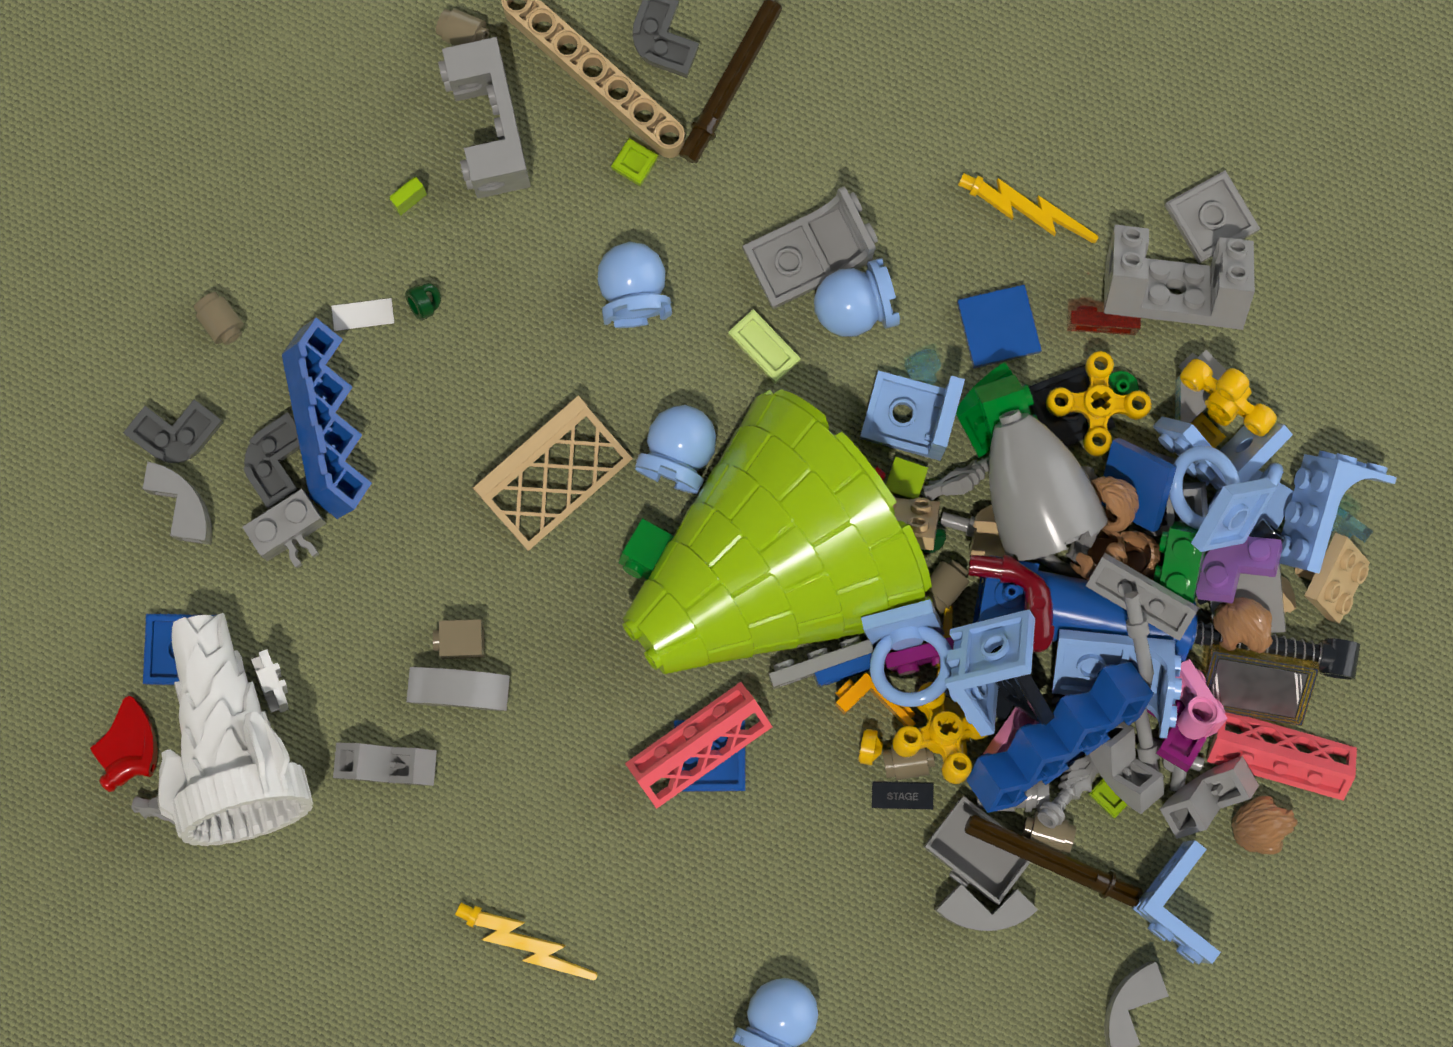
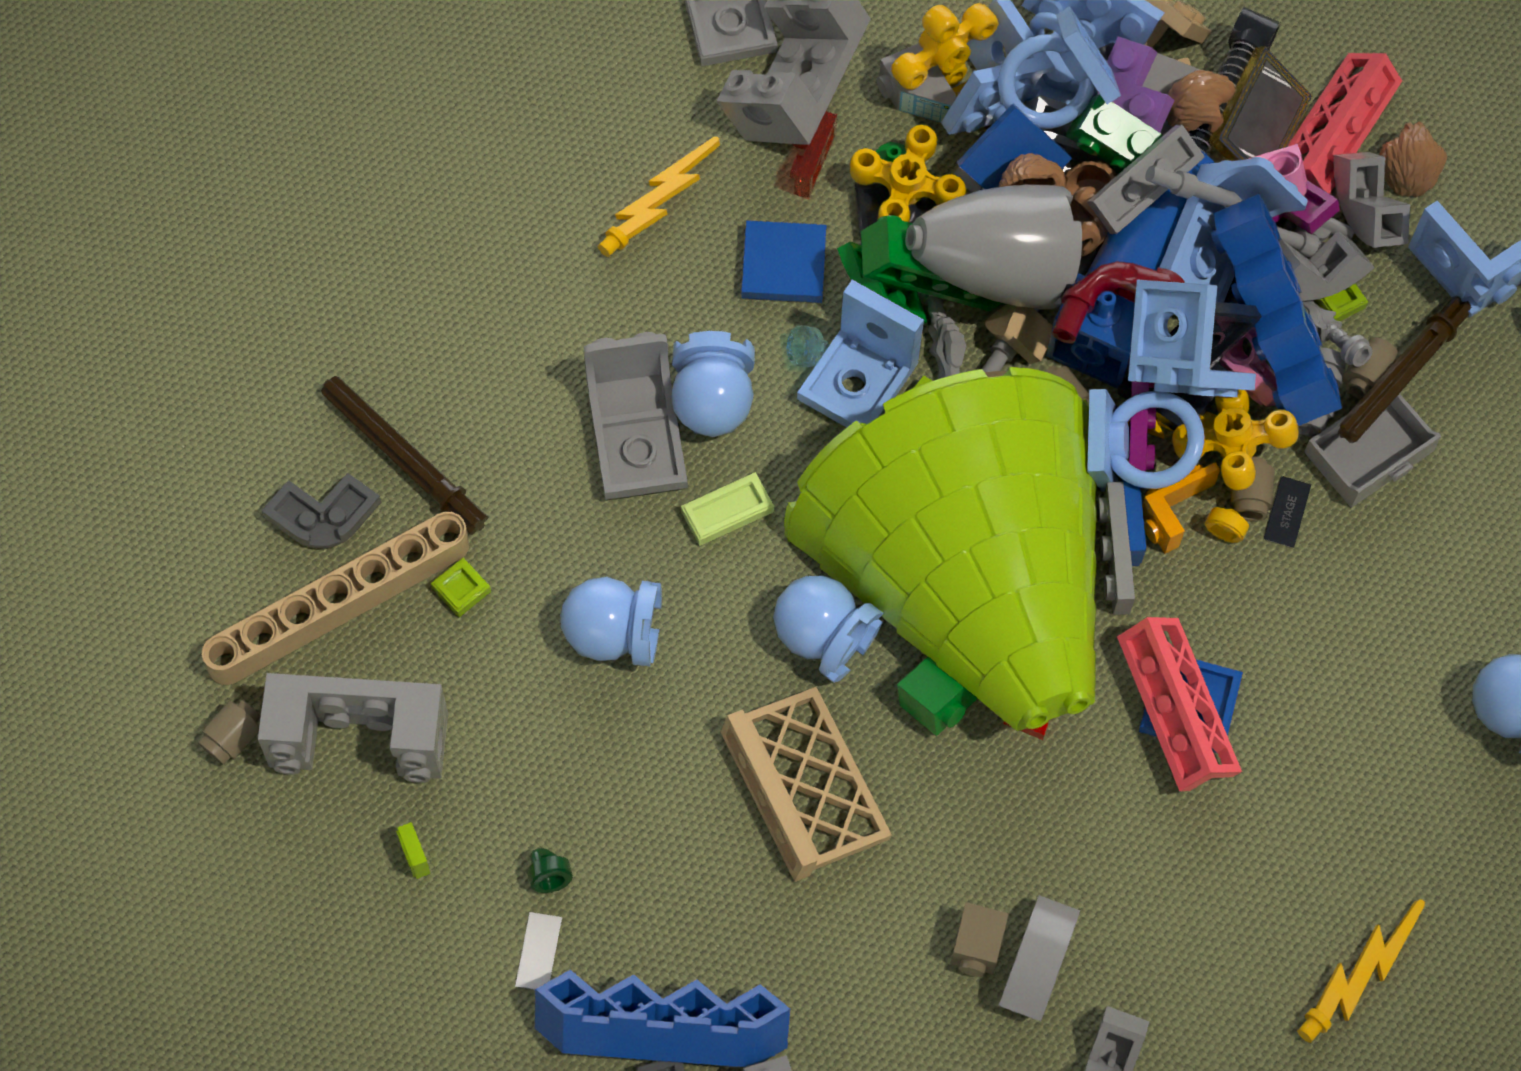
camera: 75 degrees left, 15 degrees down
(966, 911) = (1436, 476): light grey brick -> none

